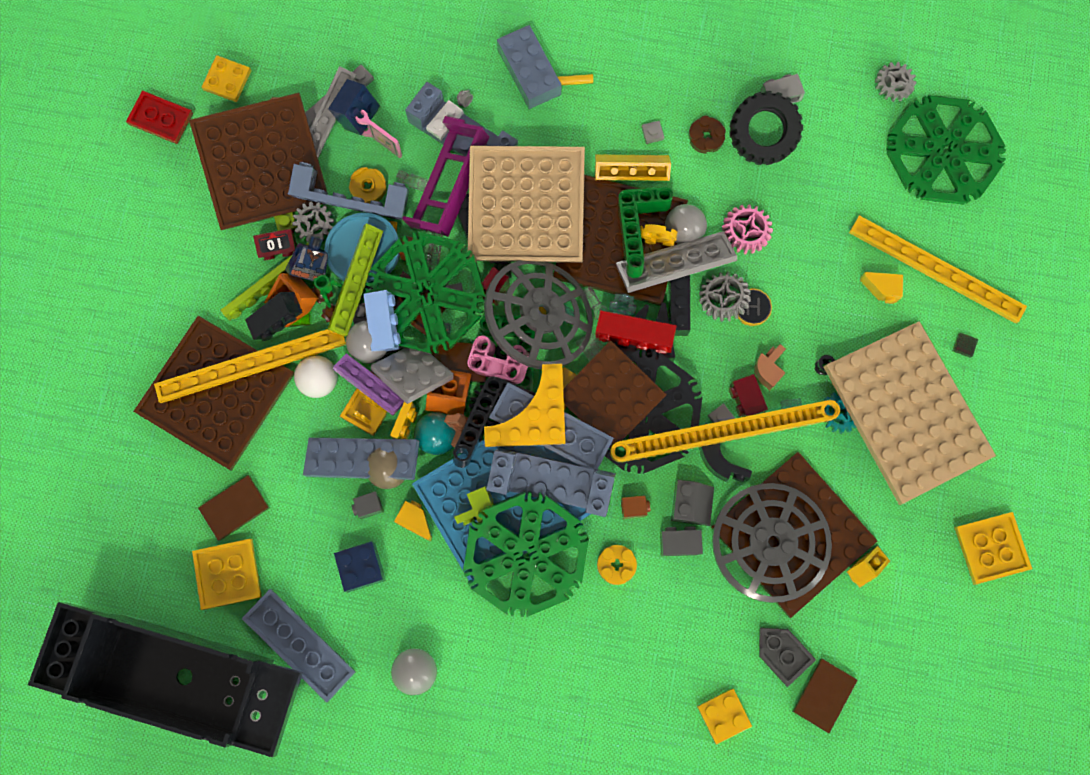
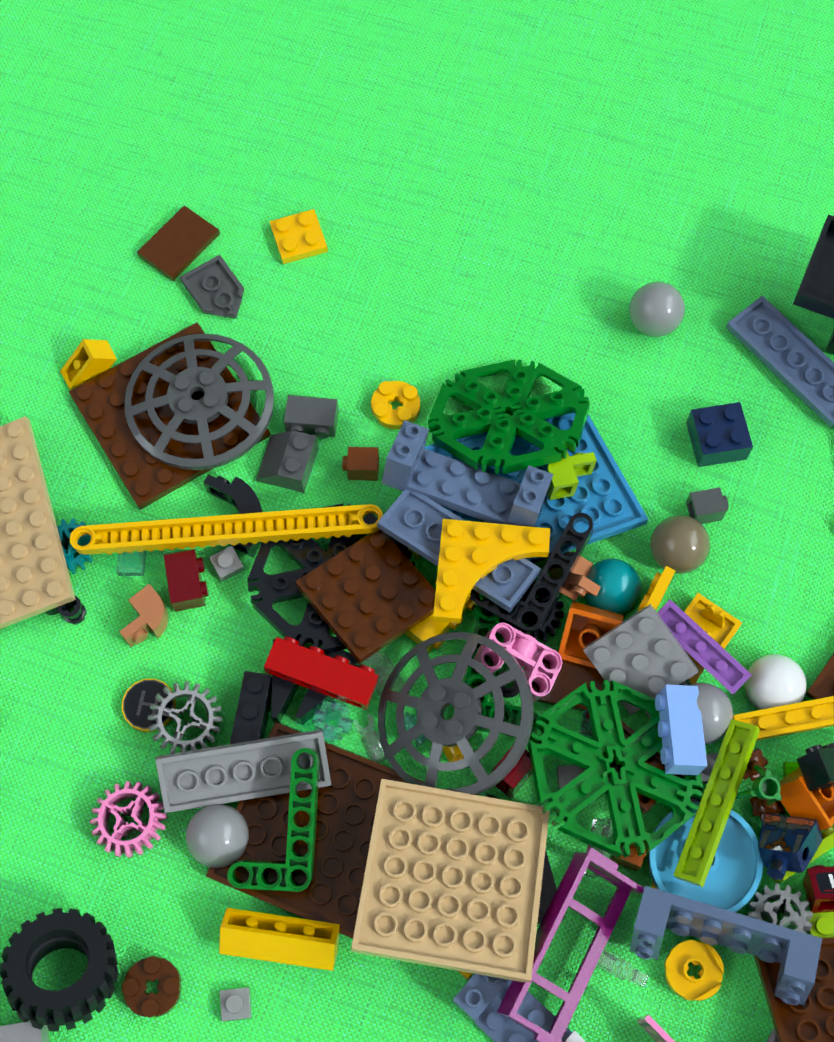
camera: 170 degrees left, 10 degrees down
(349, 457) = (729, 561): sand blue plate -> none
(414, 519) = (647, 480): yellow slope -> none
(658, 233) = (261, 812): yellow plate -> none

